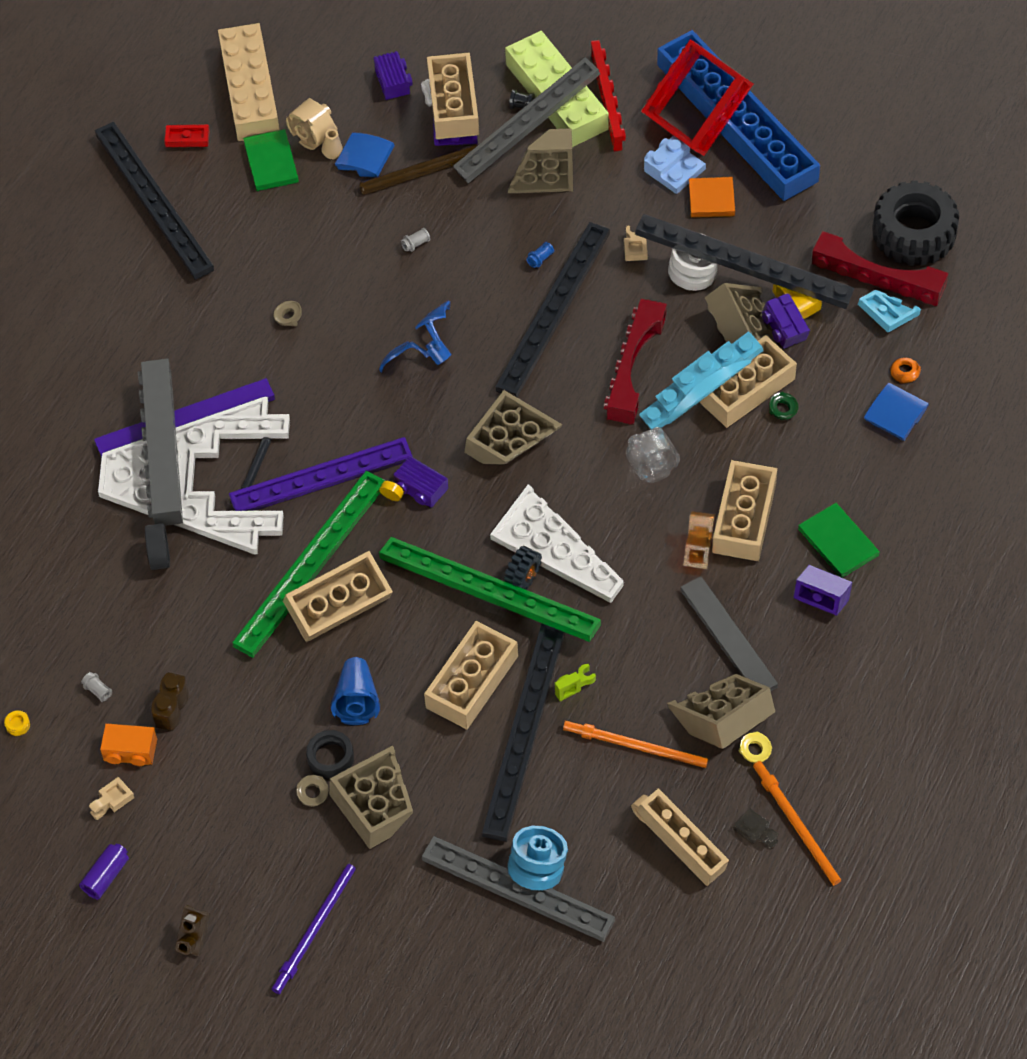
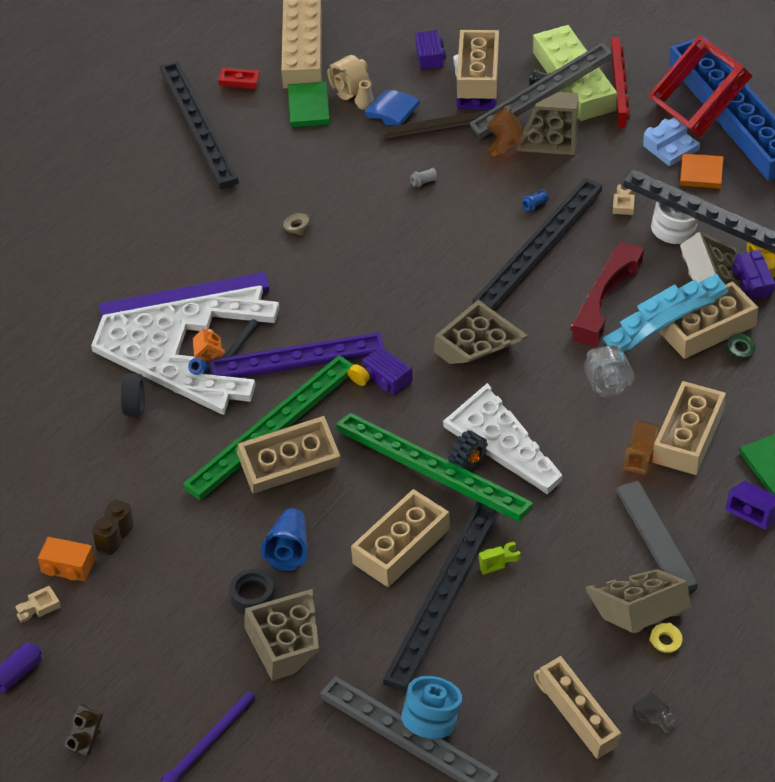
camera: 10 degrees right, 10 degrees down
(96, 686) = (46, 503): light grey pin -> none
(161, 442) = (156, 310): dark grey brick -> none
(214, 505) = (194, 368): none -> blue pin
(224, 477) = (209, 341): none -> orange brick
(312, 780) = (225, 613): dark tan piece -> none
(435, 348) = (423, 263): blue plant -> none
(497, 173) = (507, 129): none -> clear orange brick
(589, 731) = (505, 603): orange bar -> none
(771, 785) = (677, 674): orange bar -> none

